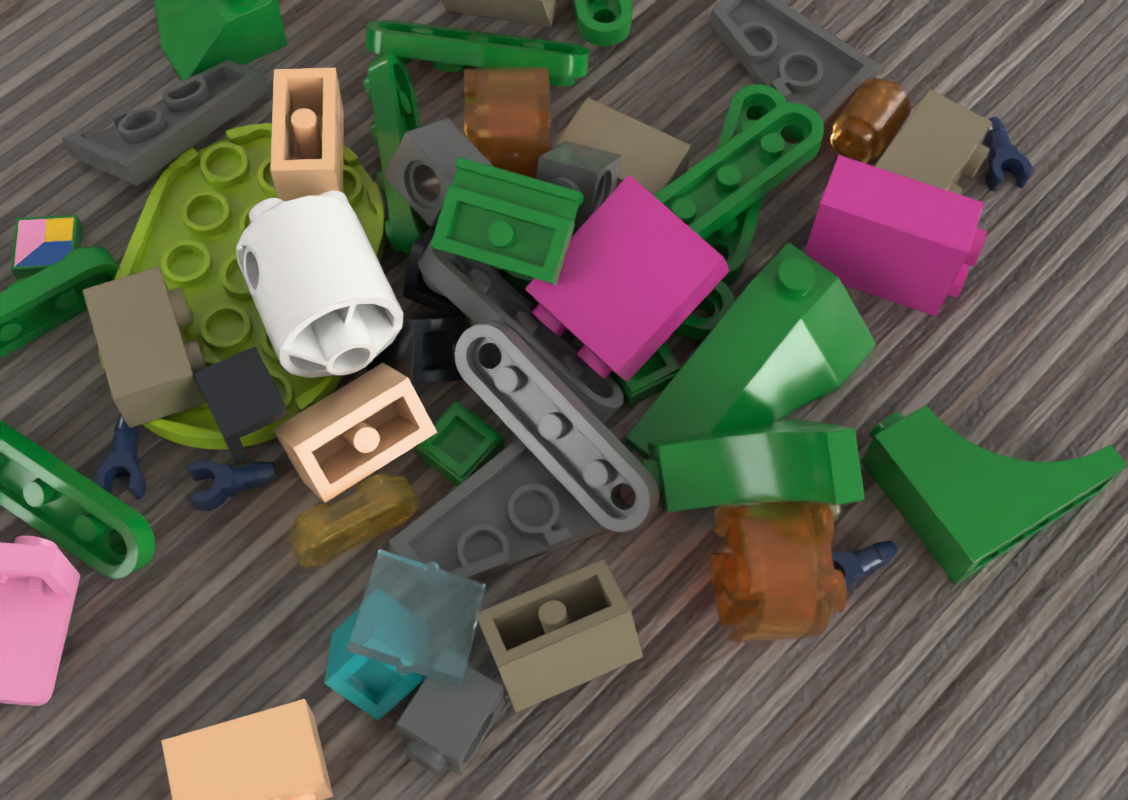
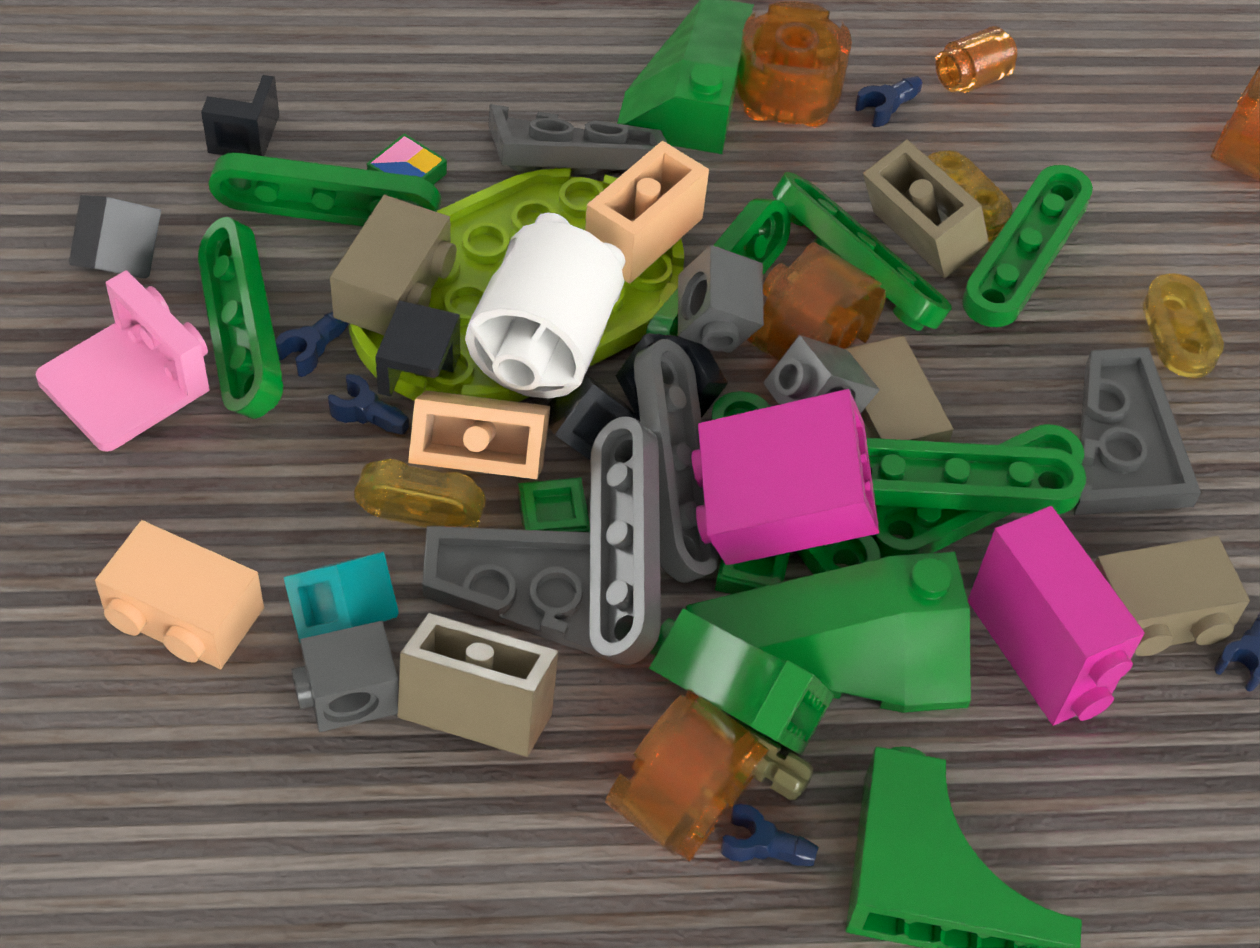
camera: 40 degrees right, 10 degrees down
(417, 618) = (385, 582): clear light blue piece -> none
(507, 221) = (723, 359): green plate -> none
(870, 120) = (1146, 523): clear orange brick -> none

